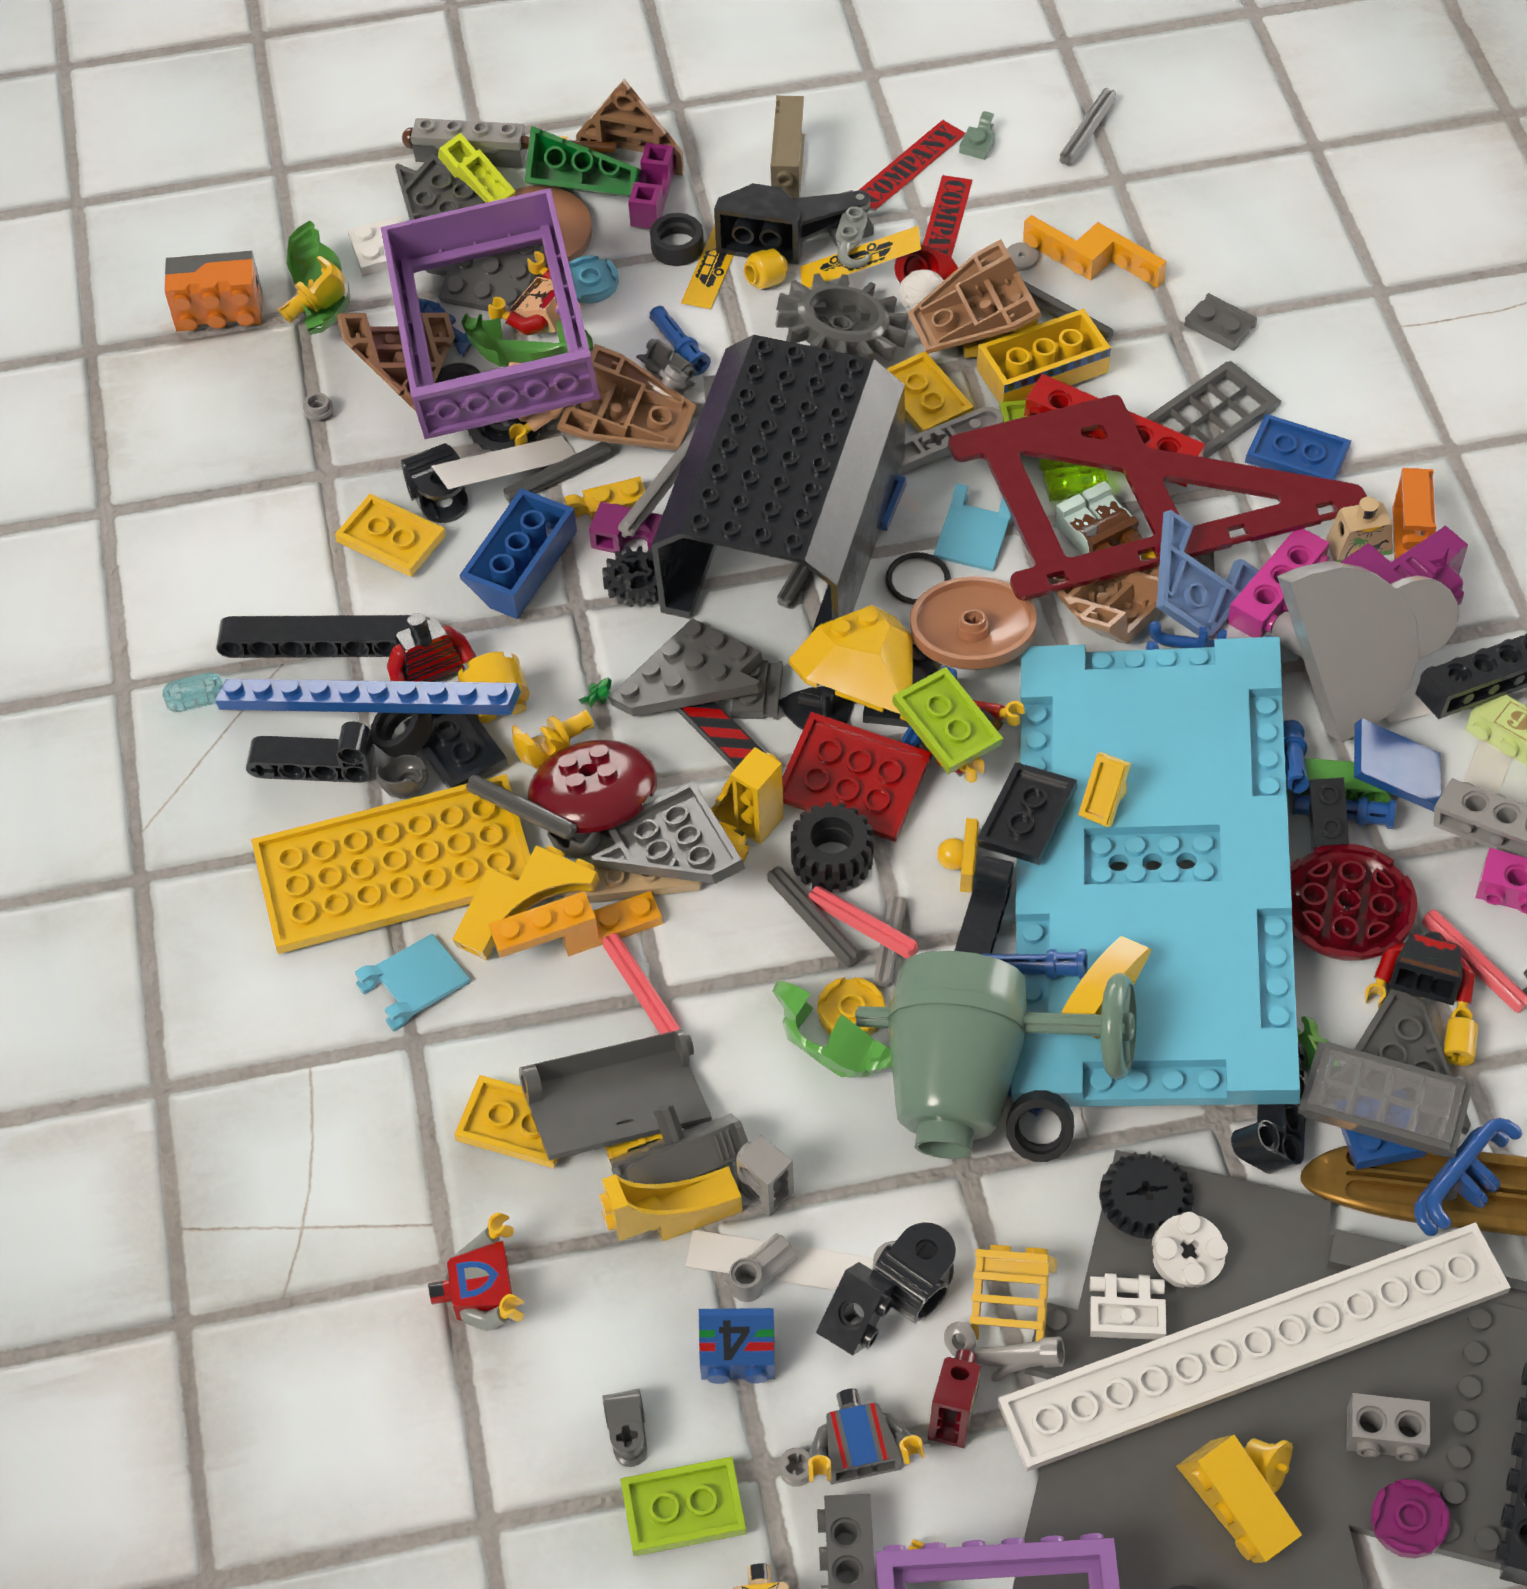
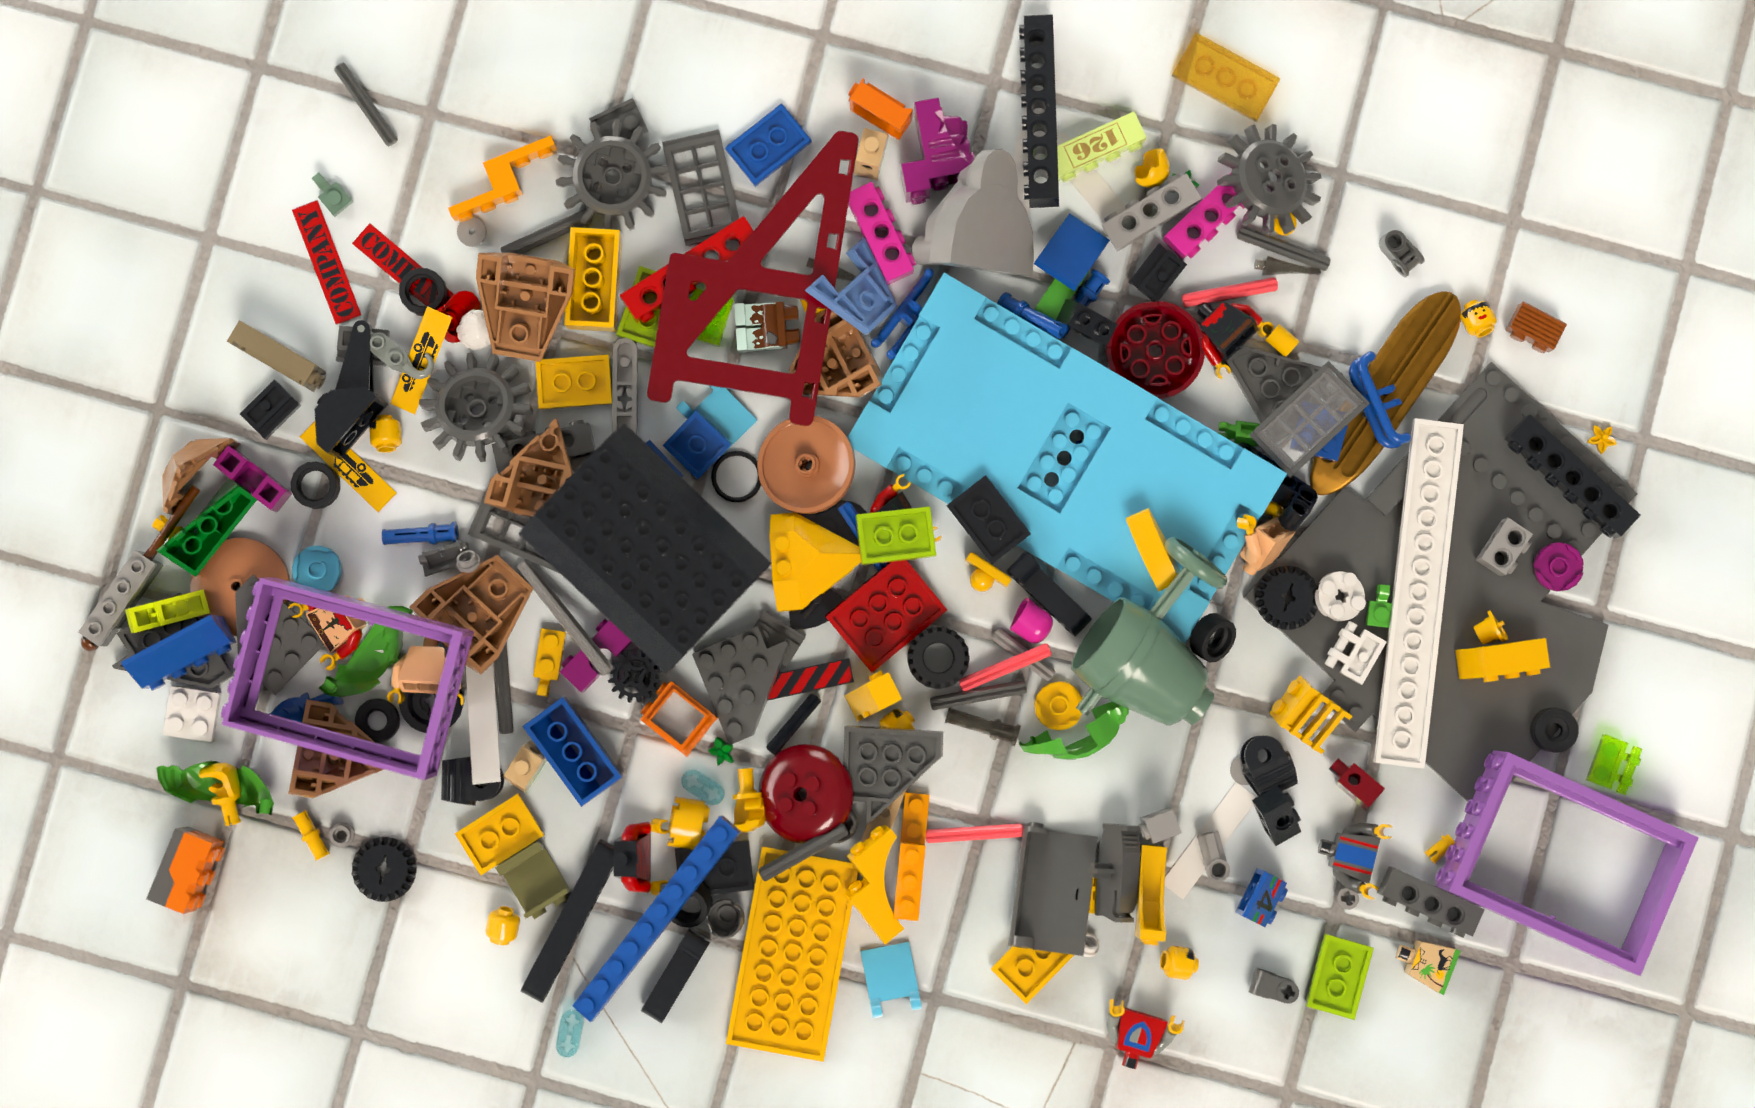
camera: 70 degrees left, 30 degrees up
(286, 471) = (399, 861): none -> black gear
(287, 576) = (502, 925): none -> yellow head
(304, 382) = (310, 835): none -> yellow pin
(359, 583) = (534, 879): none -> olive panel
(431, 182) = (179, 652): none -> blue slope
(473, 516) = (525, 767): none -> tan torso
(539, 694) = (699, 792): none -> clear light blue beam
(566, 1173) = (1091, 945): none -> white plate
(598, 1290) = (1179, 962): none -> yellow head
(612, 632) = (678, 717): none -> window
(671, 748) = (793, 724): none -> black axle
(727, 174) = (270, 409): none -> black plate
(781, 947) = (995, 728): none -> clear smoke pin
(929, 520) = (697, 444): none -> blue plate
(934, 922) = (1031, 622): none -> dark pink helmet
(942, 225) = (416, 274): none -> black tyre
(1012, 1358) = (1360, 717): light grey plant -> none
(1050, 964) = (1113, 570): blue pin -> none
(1105, 789) = (1007, 464): yellow tile -> none
(1152, 312) = (618, 153): none -> dark grey gear
(1195, 1122) = (1265, 541): none -> light nougat torso
(1201, 1308) = (1379, 610): none -> bright green plate
(1441, 871) = (1157, 273): none -> black plate

